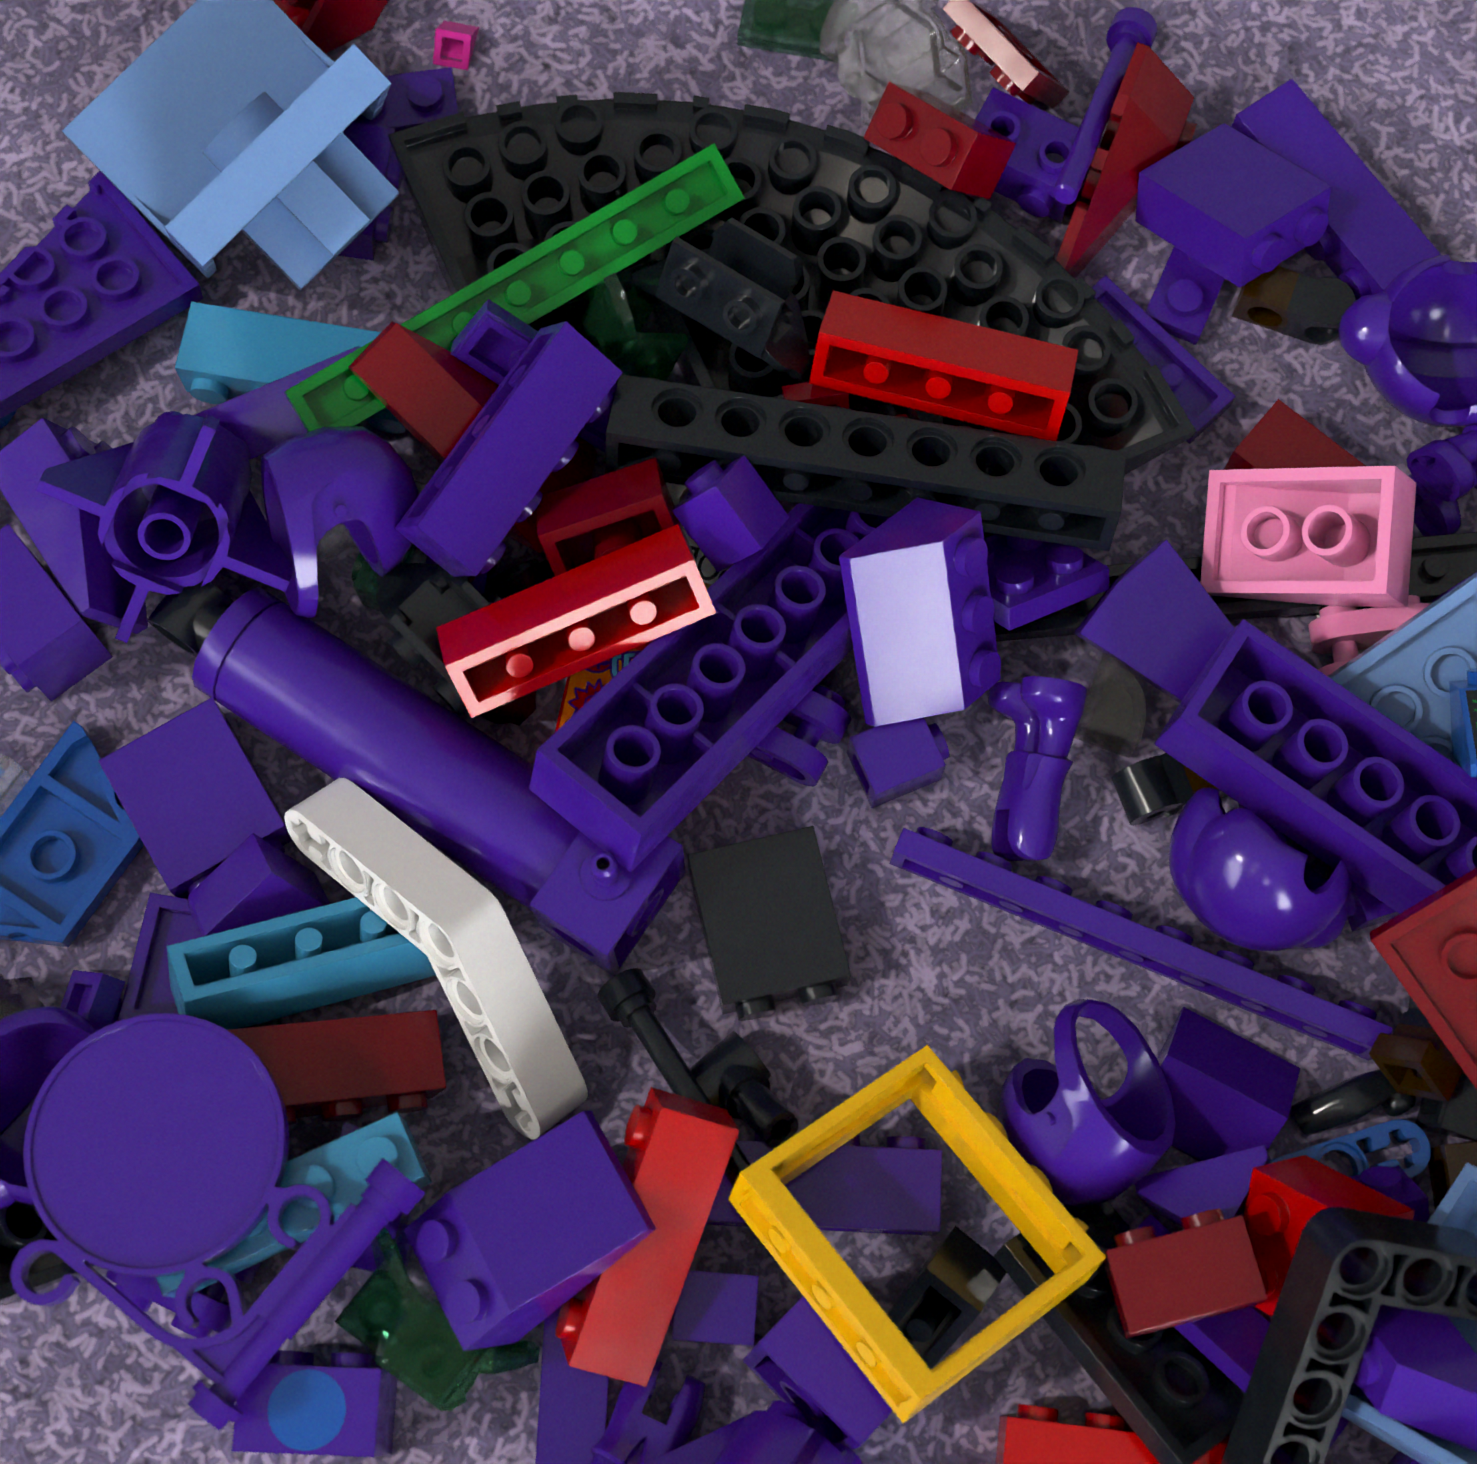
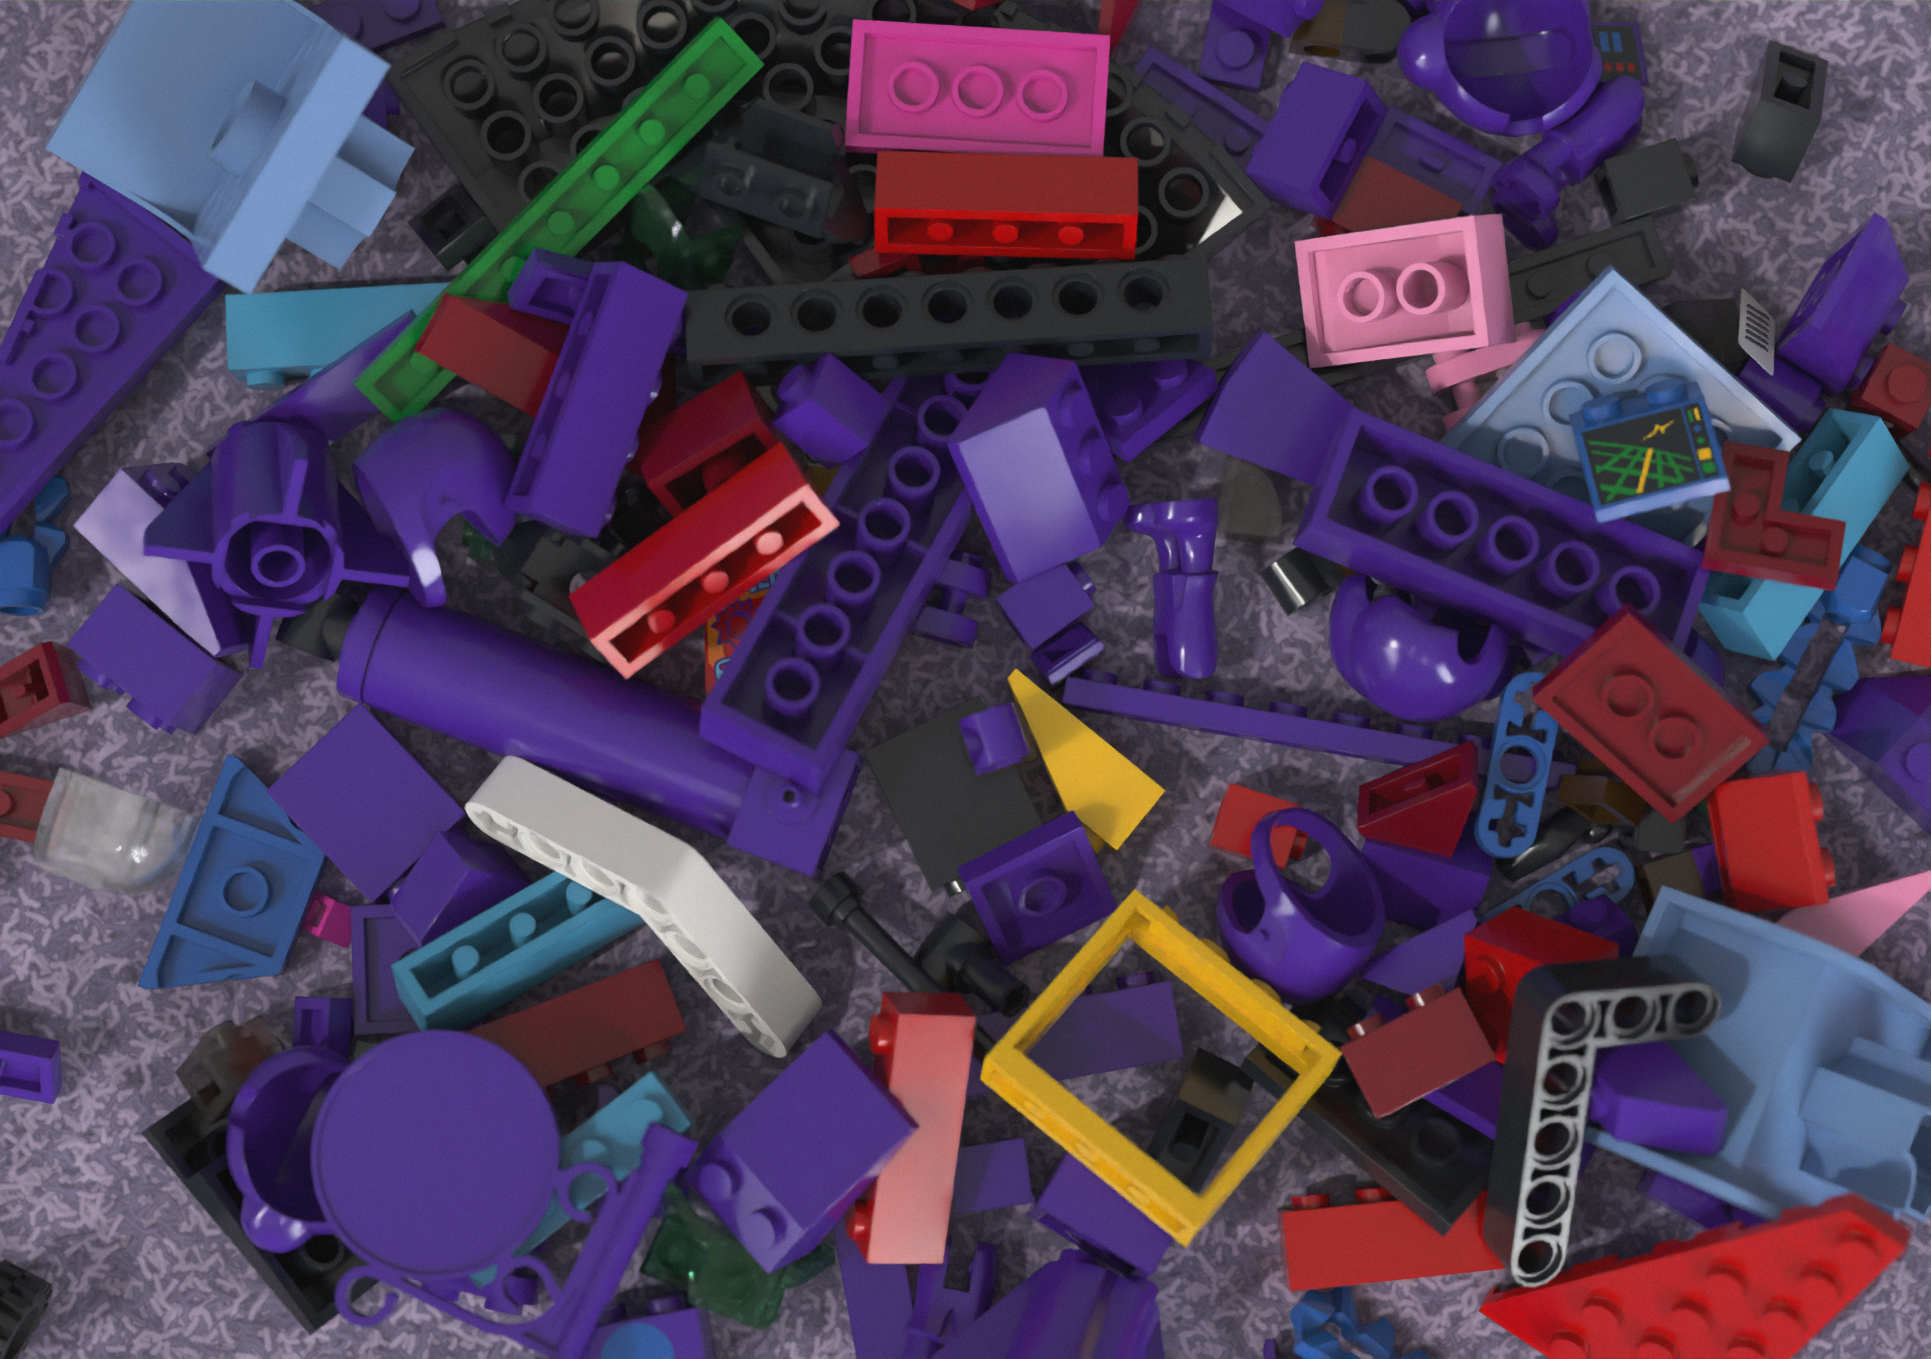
camera: 10 degrees left, 10 degrees up
(128, 906) = (331, 920): none -> dark pink piece
(418, 289) = (453, 228): none -> black hinge
(820, 865) = (996, 740): none -> dark purple leg
(828, 1027) = (1038, 888): none -> dark purple plate
(903, 931) = (1084, 769): none -> yellow slope
(908, 809) = (1067, 654): none -> dark purple slope
(937, 260) = (975, 90): none -> dark pink plate
(1037, 1014) = (1239, 815): none -> red brick
(1234, 1029) = (1423, 802): none -> dark red slope
(1249, 382) = (1316, 140): none -> dark purple brick
(1300, 1050) = (1491, 809): none -> blue beam
(1353, 426) = (1434, 159): none -> dark purple plate

